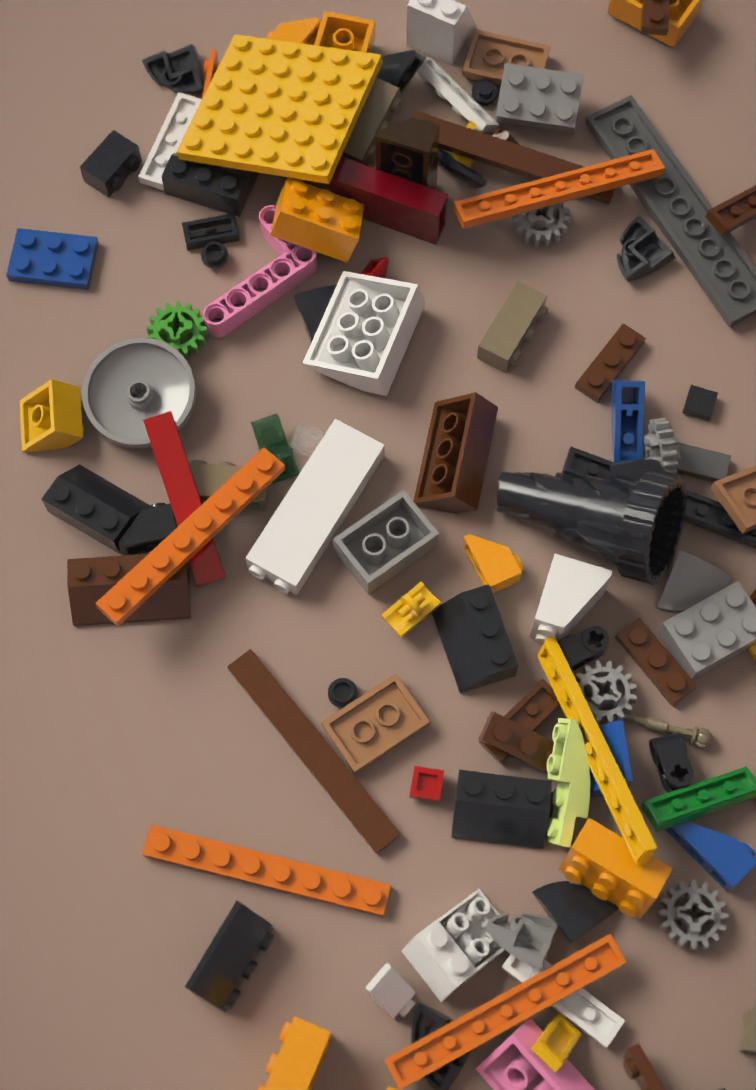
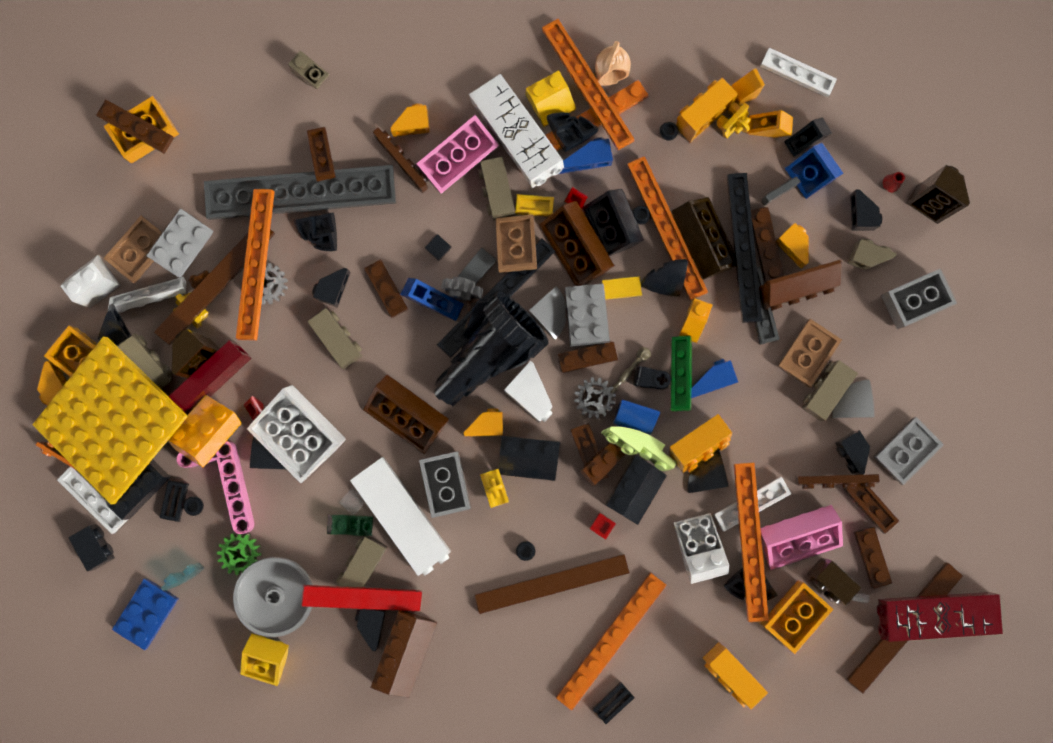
camera: 70 degrees left, 15 degrees up
(93, 505) = (337, 653): black slope -> none
(112, 275) = (178, 579): none -> clear light blue slope
(153, 901) = (608, 718): none -> black tile
(177, 70) = (37, 472): black brick -> none
(190, 537) = (391, 605): orange plate -> none
(231, 957) = (655, 684): black slope -> none
(375, 723) = (553, 540): medium nougat plate -> none
(391, 992) = (712, 601): white slope -> none
(459, 171) = (211, 322): black brick -> none
(484, 92) = (154, 274): black plate -> none
(524, 936) = (714, 512): light grey brick -> none
(556, 1041) = (778, 521): yellow tile -> none
(577, 295) = (331, 288): none -> black slope
(577, 649) = (562, 402): black piece -> none
(599, 755) = (636, 423): yellow tile -> none
(692, 929) = (745, 402): light grey gear -> none

